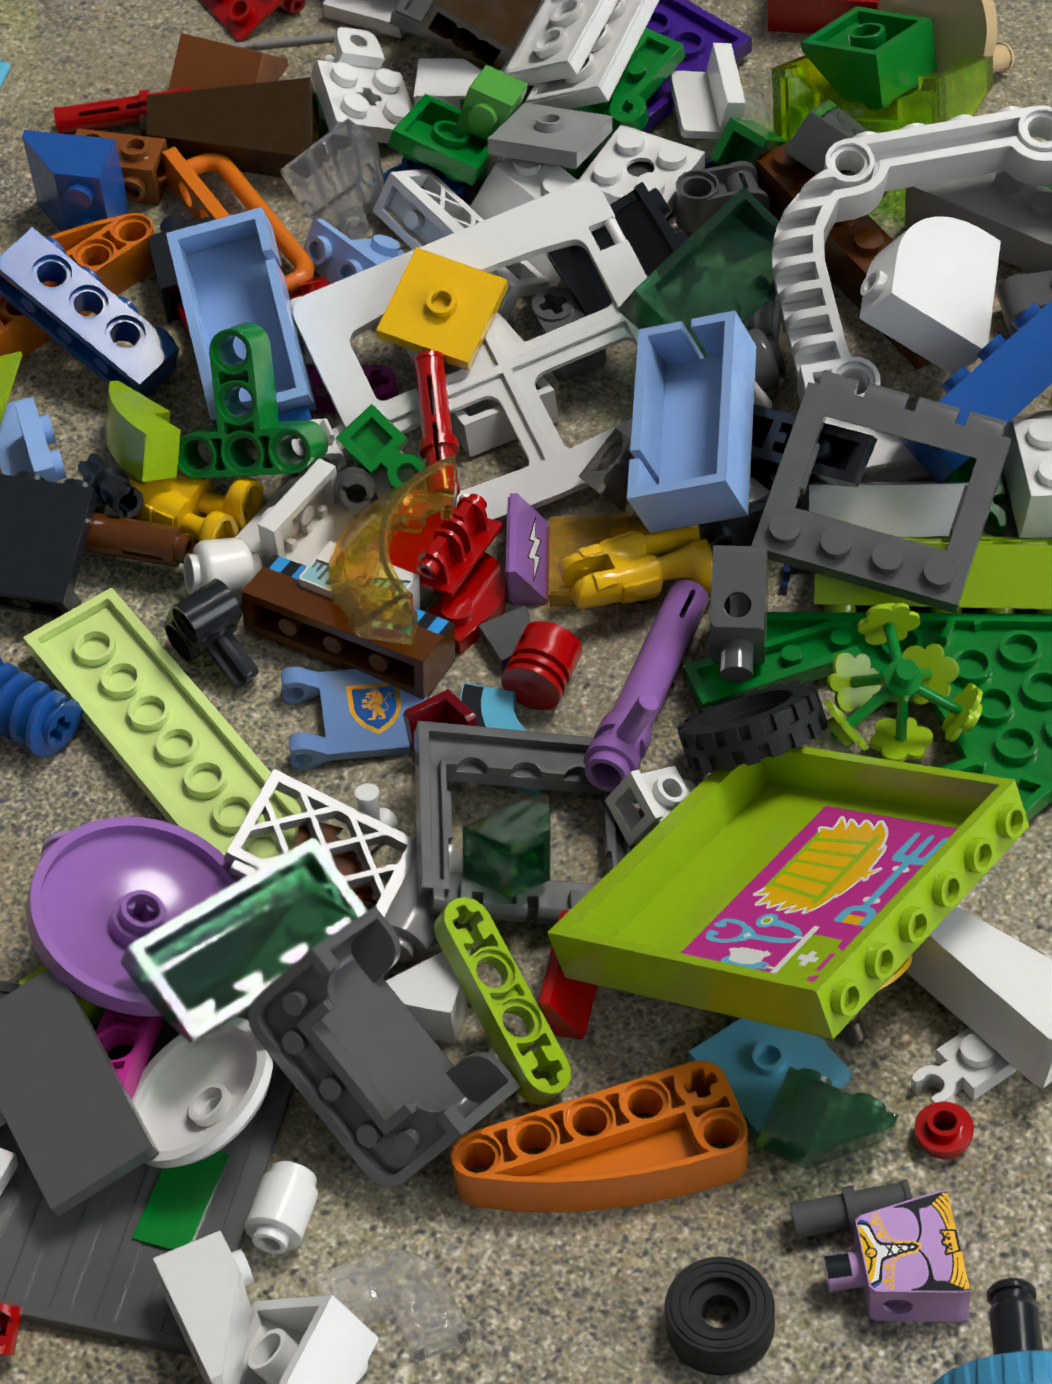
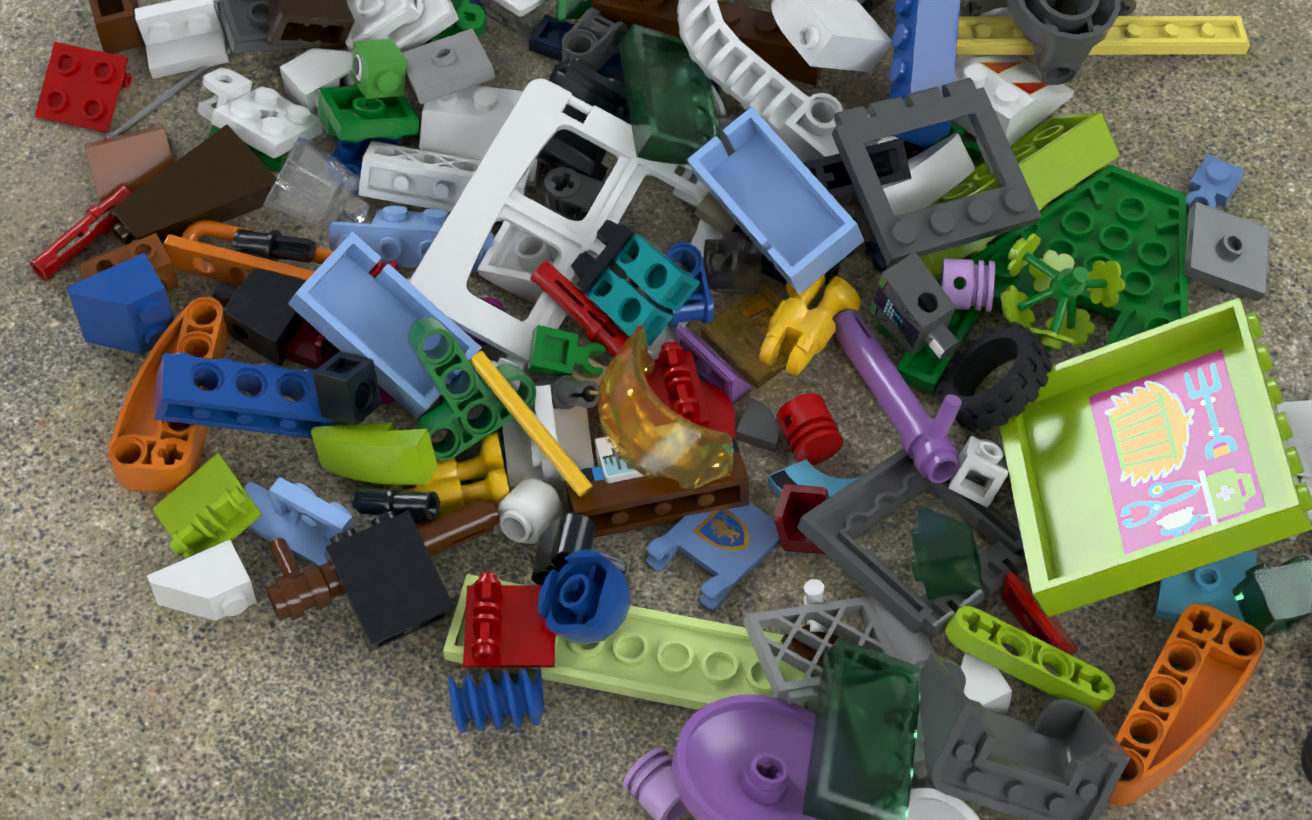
camera: 45 degrees left, 5 degrees up
(90, 648) = (505, 626): none -> red hinge
(152, 340) = (347, 388): none -> black brick
(160, 666) = (585, 598): none -> blue cylinder
(239, 199) = (274, 246): none -> black axle
(268, 482) = (530, 424): none -> yellow bar
(442, 308) = (517, 228): yellow plate -> none
(496, 420) = (621, 269): none -> teal hips
(549, 468) = (700, 303): none -> blue piece
(641, 157) = (521, 53): white piece -> none
(827, 627) = (977, 281): none -> lavender piece

